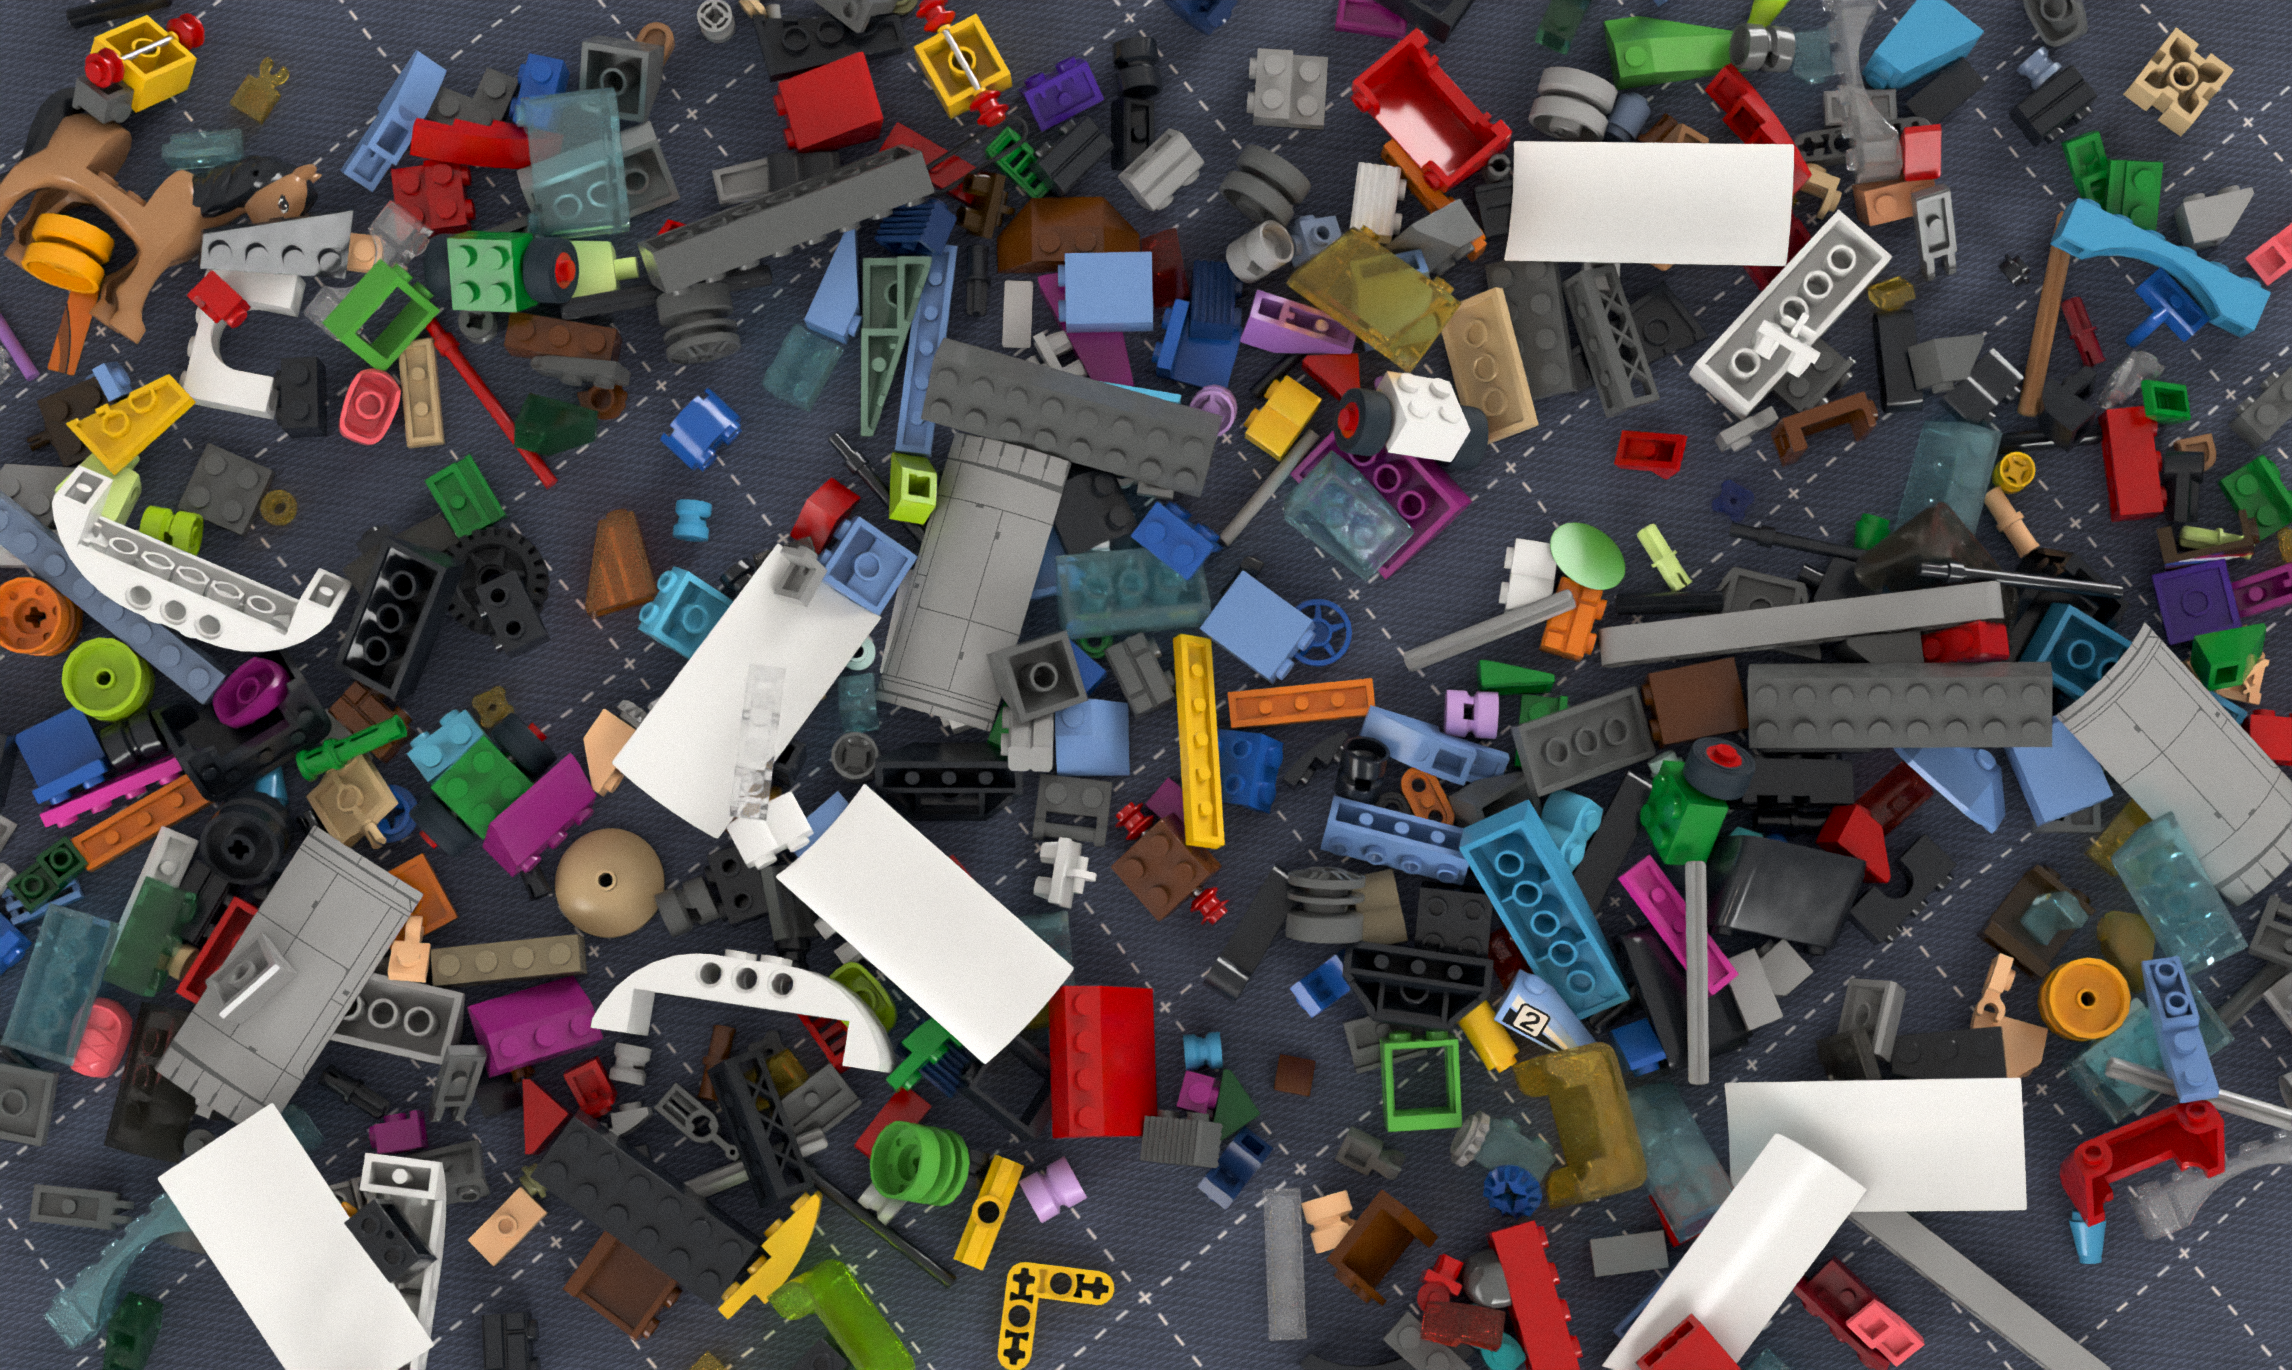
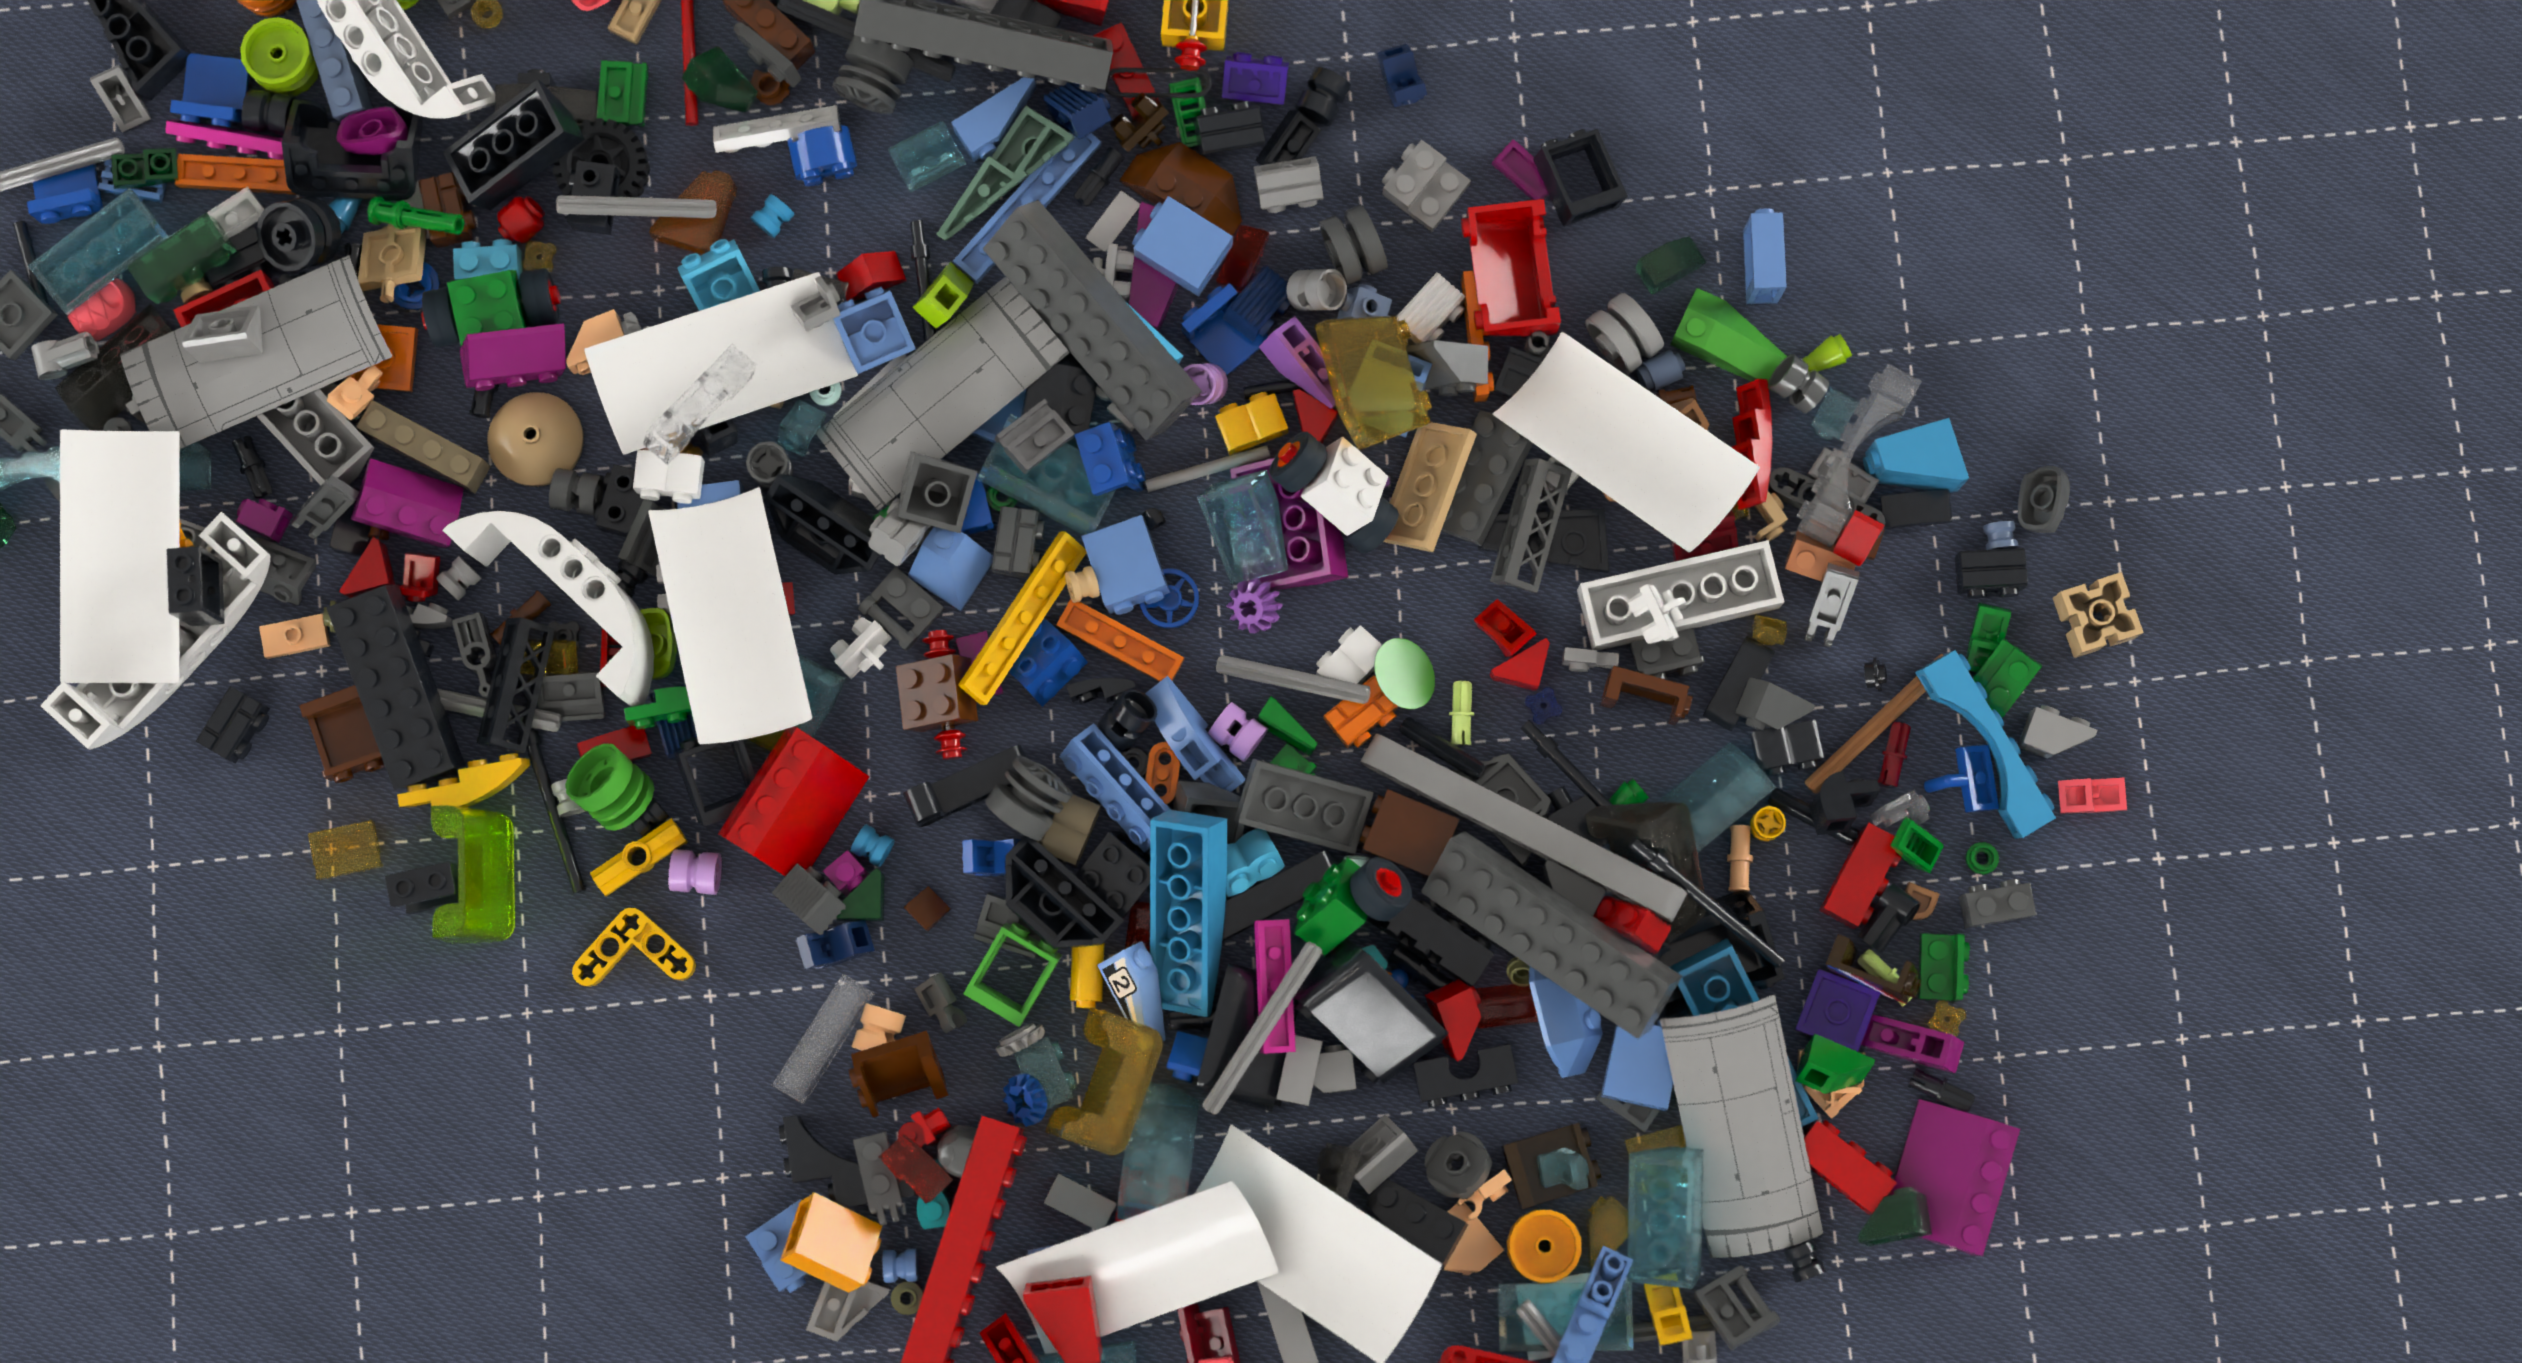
camera: 35 degrees right, 0 degrees up
(86, 1115) = (55, 357): none -> light grey piece
(451, 683) = (520, 219): none -> red head
(562, 595) = (636, 206): none -> light grey axle
(637, 436) = (773, 129): none -> white plate
(1096, 562) = (1034, 436): none -> flat silver plate
(1231, 672) = (1082, 584): none -> tan wheel
(1392, 591) = (1263, 600): none -> medium lavender gear
(1696, 476) = (1524, 668): none -> red slope
(1884, 761) = (1518, 972): none -> olive plate
(1969, 992) = (1454, 1148): none -> dark grey plate
(2235, 370) = (1991, 854): none -> green plate
(2238, 985) = (1667, 1314): none -> yellow slope

